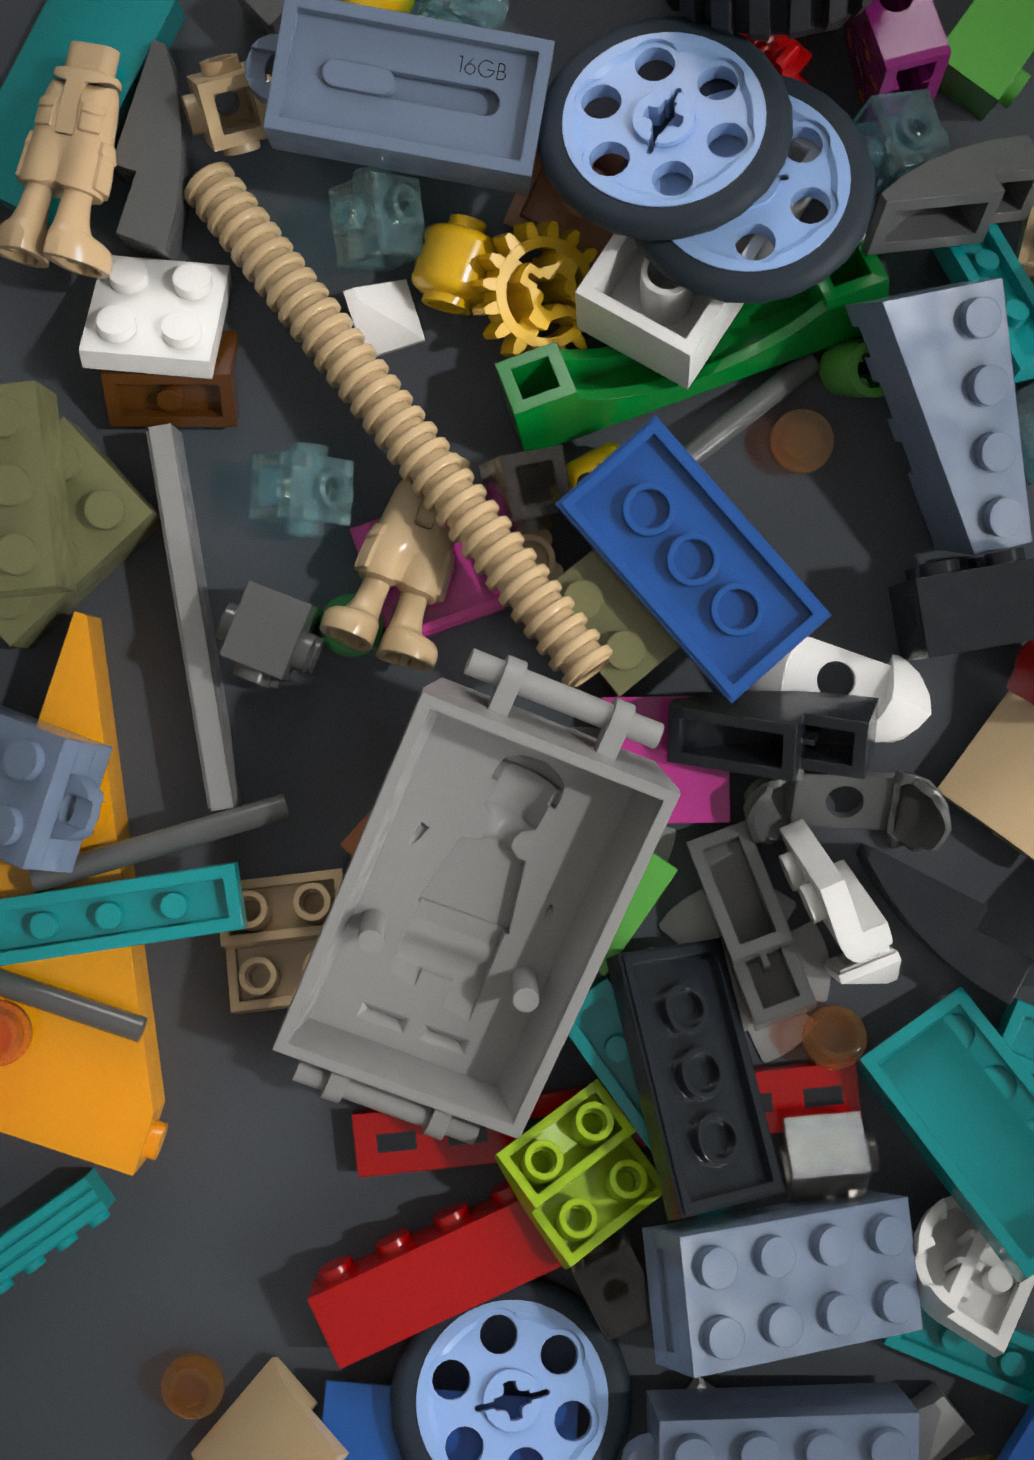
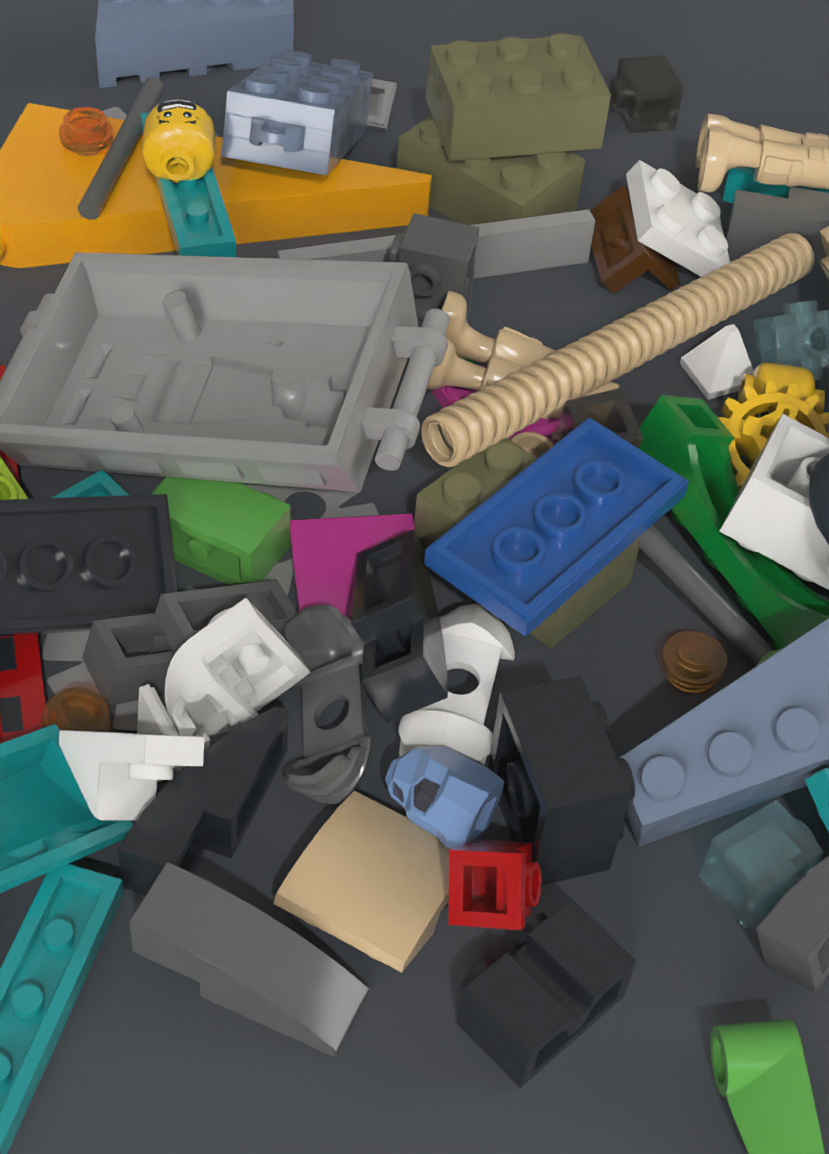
camera: 80 degrees right, 40 degrees down
(75, 927) = (178, 141): none -> yellow head
(166, 841) = (242, 205): dark grey bar -> none
(302, 489) = (573, 290): clear light blue brick -> none
(917, 996) = (122, 769): none -> white slope
(968, 713) = (445, 793): none -> medium blue rock

